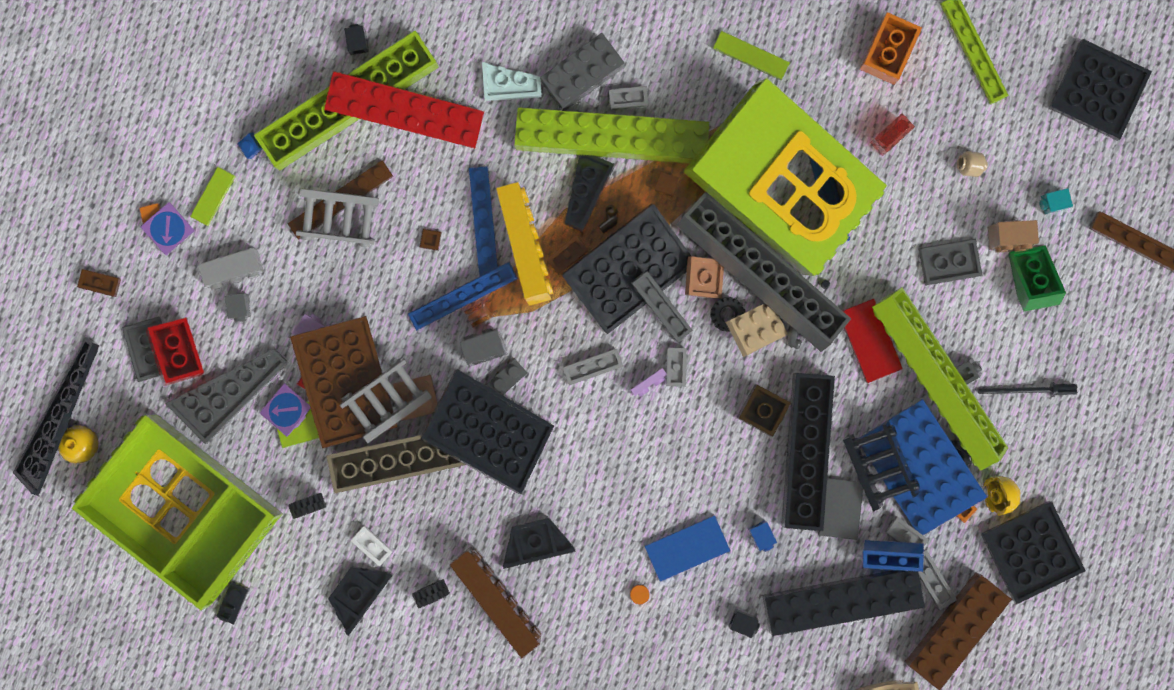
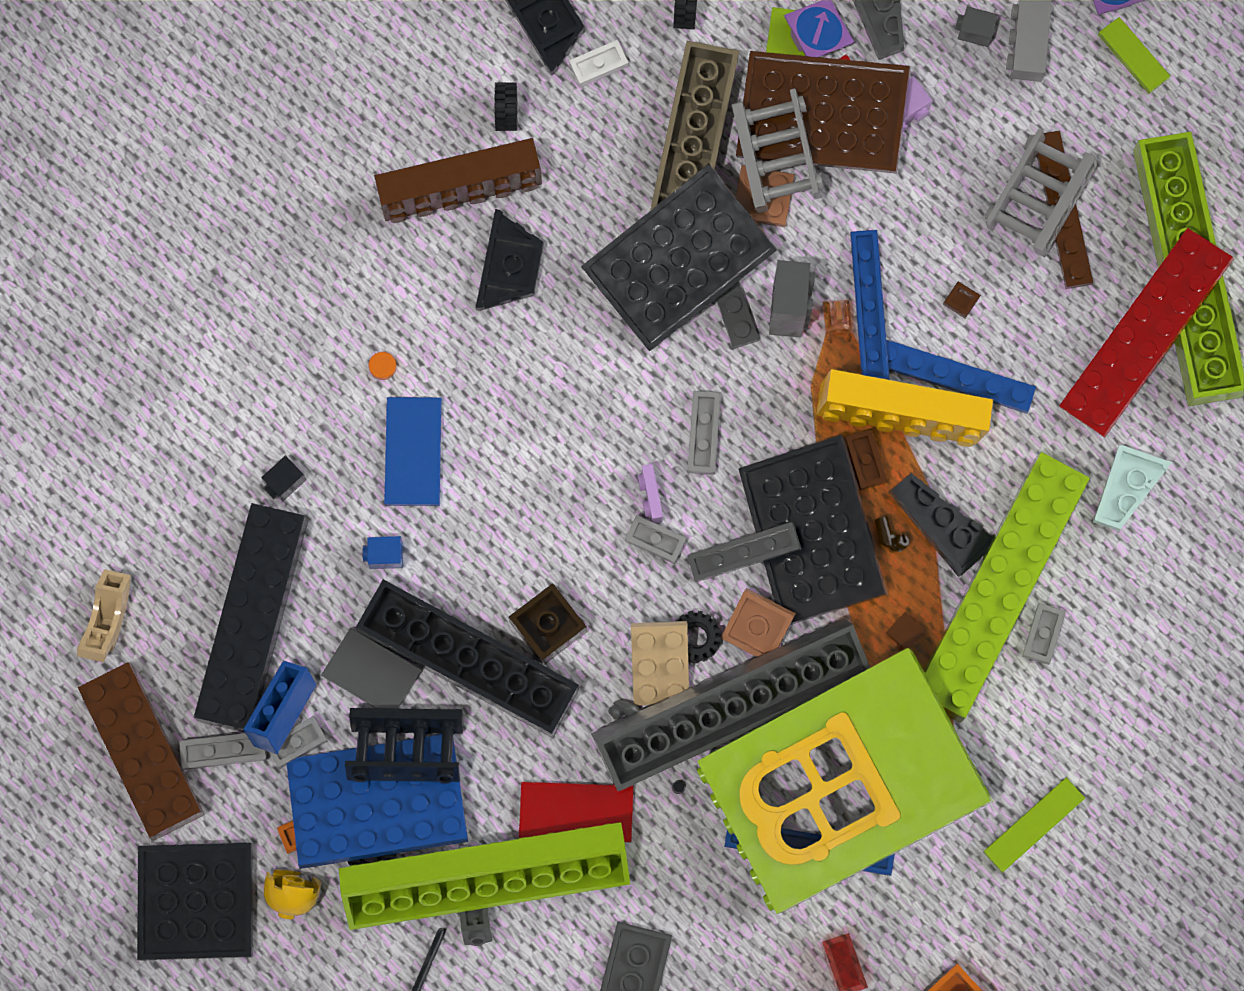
camera: 115 degrees right, 10 degrees down
(250, 146) = (1180, 124): blue plate -> none
(582, 72) = (1103, 586): dark grey brick -> none

